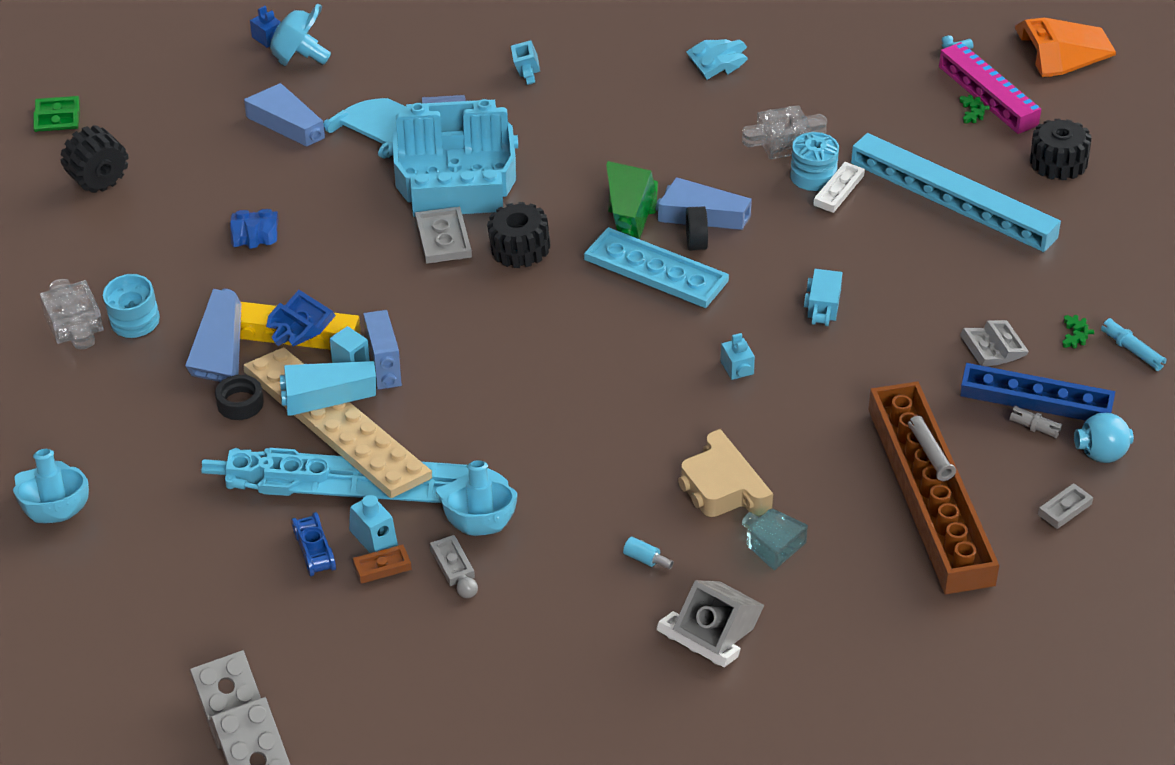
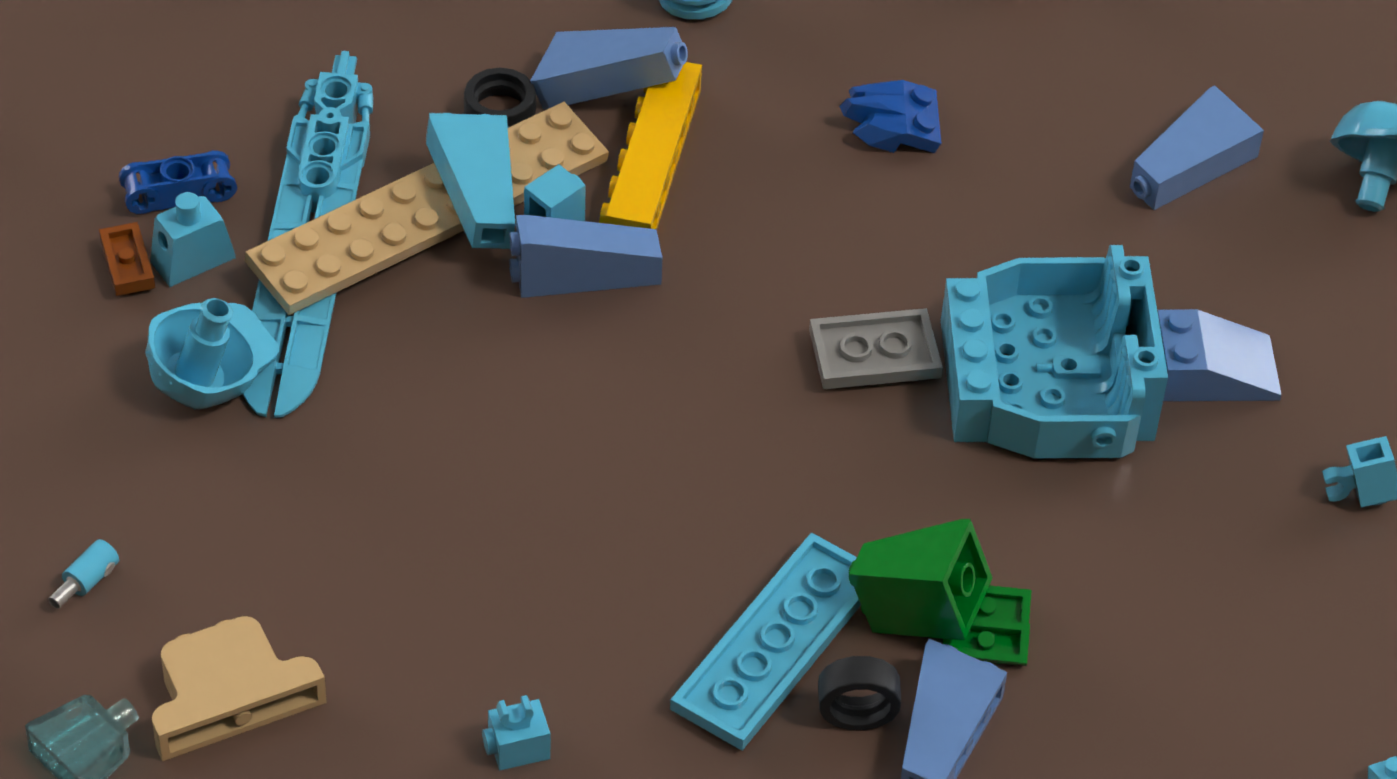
camera: 90 degrees right, 5 degrees up
(299, 319) = (629, 142): blue plate -> none
(371, 118) = (1202, 266): medium azure piece -> none
(455, 565) = (101, 340): light grey plate -> none
(519, 234) = (849, 435): black wheel -> none

